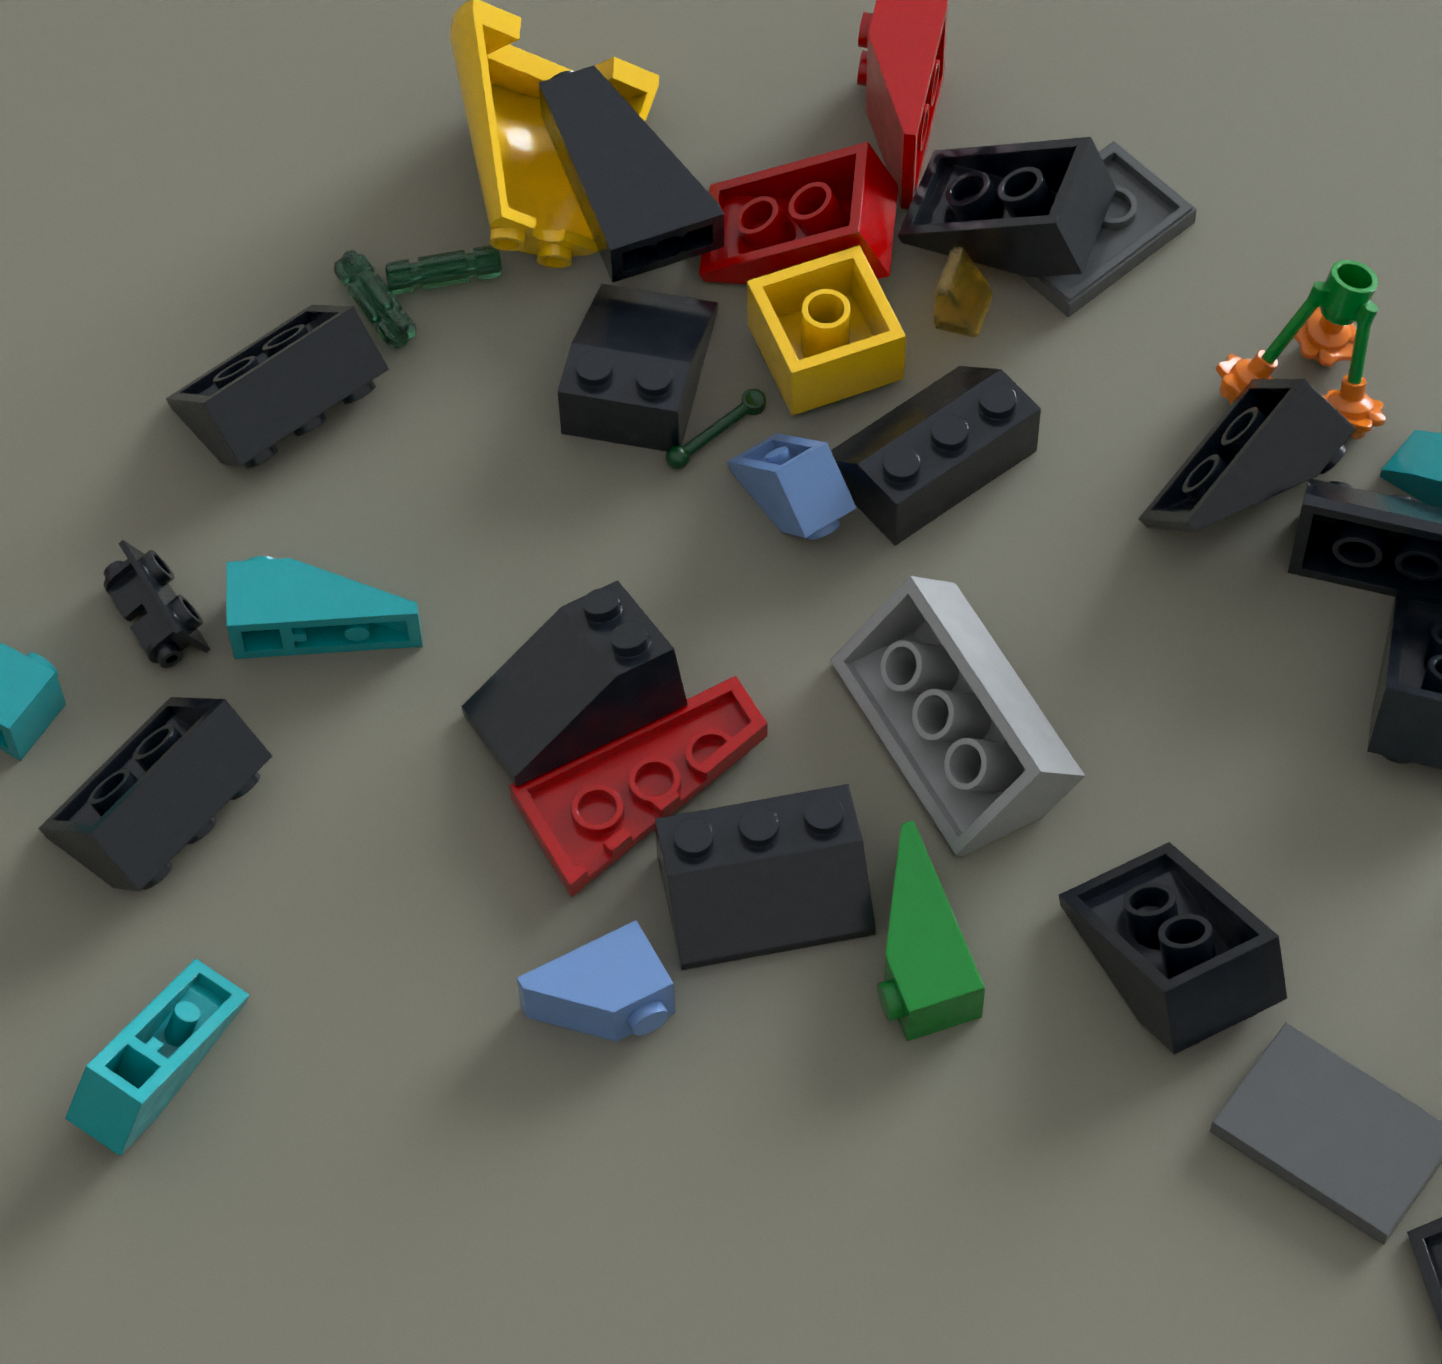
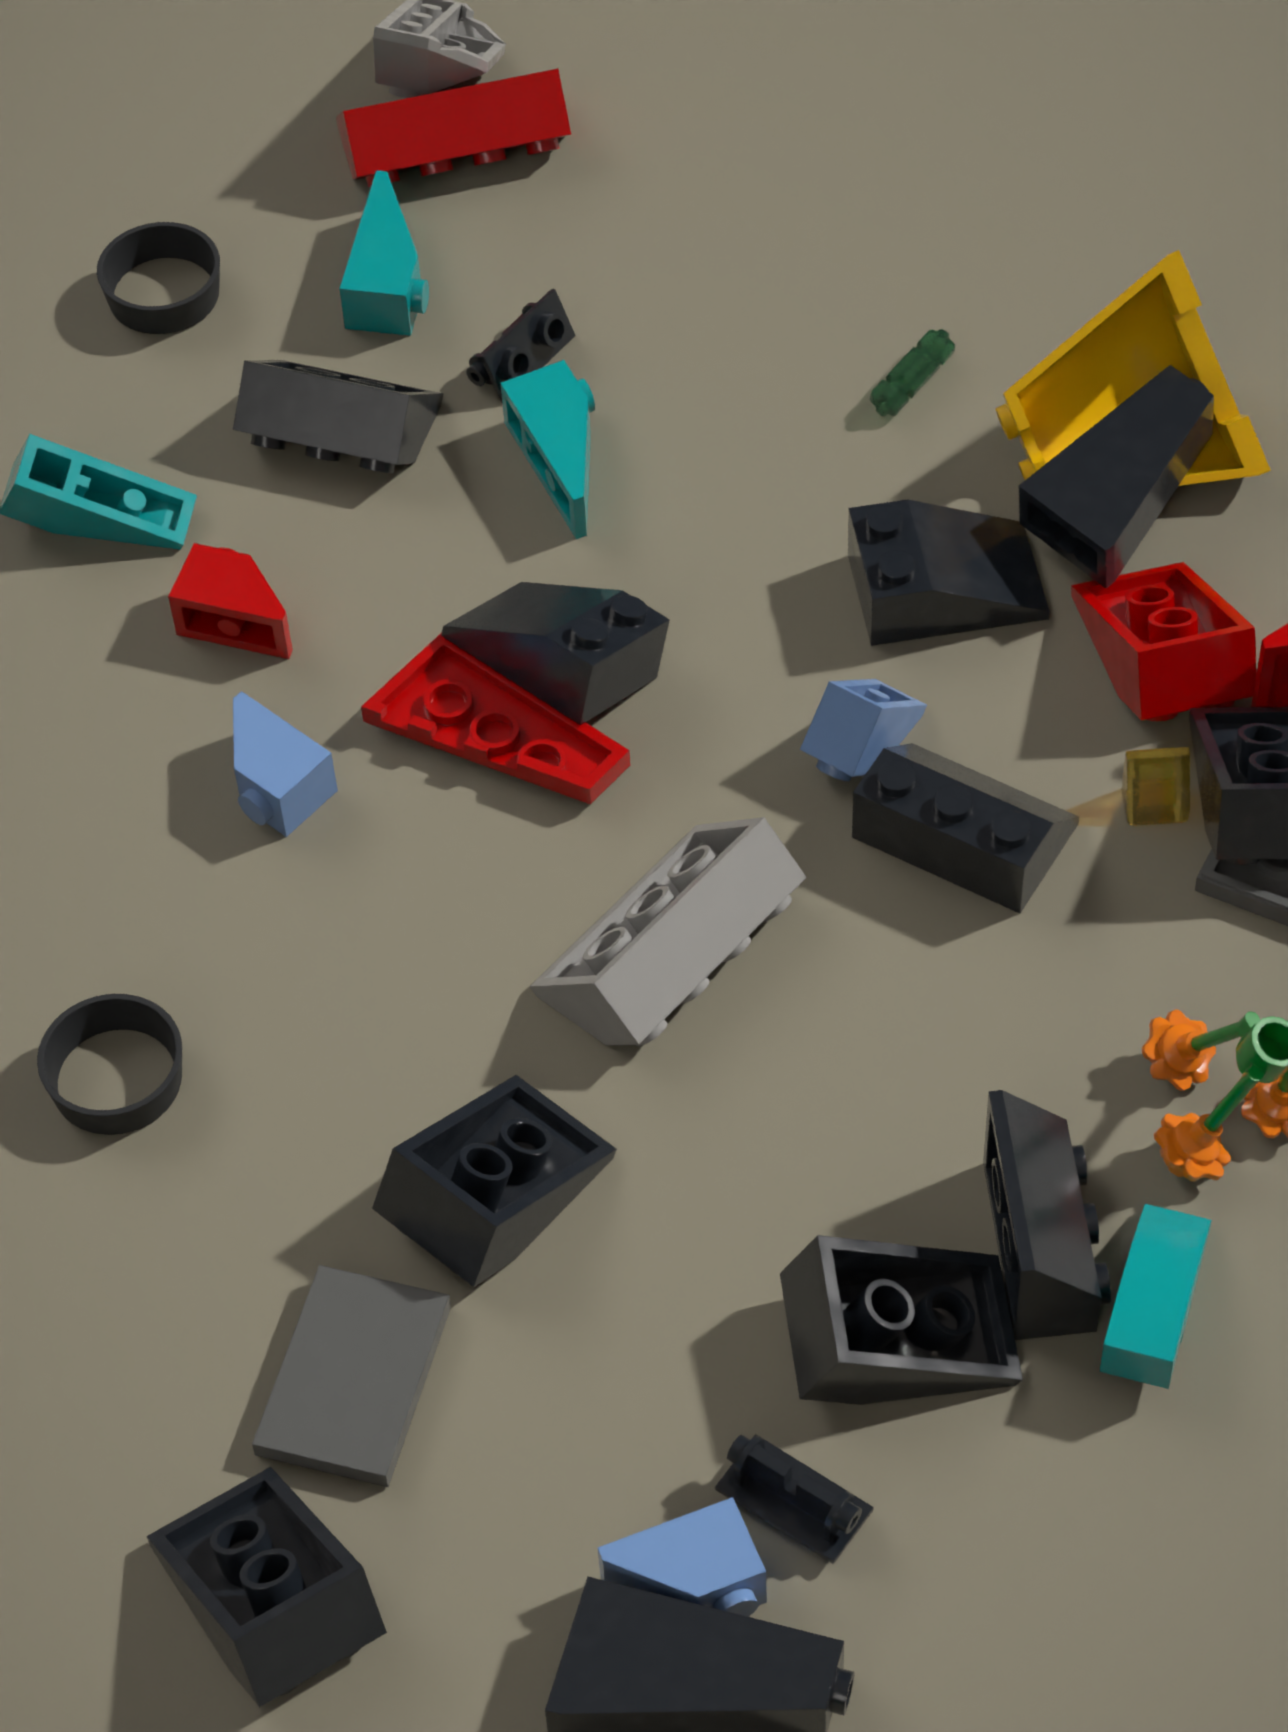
camera: 70 degrees right, 5 degrees down
(280, 384) = (777, 339): black slope -> none
(368, 963) = (228, 603): none -> red slope
(443, 269) = (968, 405): clear green axle -> none
(752, 403) = (952, 676): dark green hinge -> none
(765, 876) = (432, 842): black slope -> none
(826, 330) = (1040, 686): yellow brick -> none
(909, 1177) = (98, 1016): none -> black tyre
(927, 963) = (415, 977): green slope -> none
(1260, 447) = (1090, 1072): black slope -> none

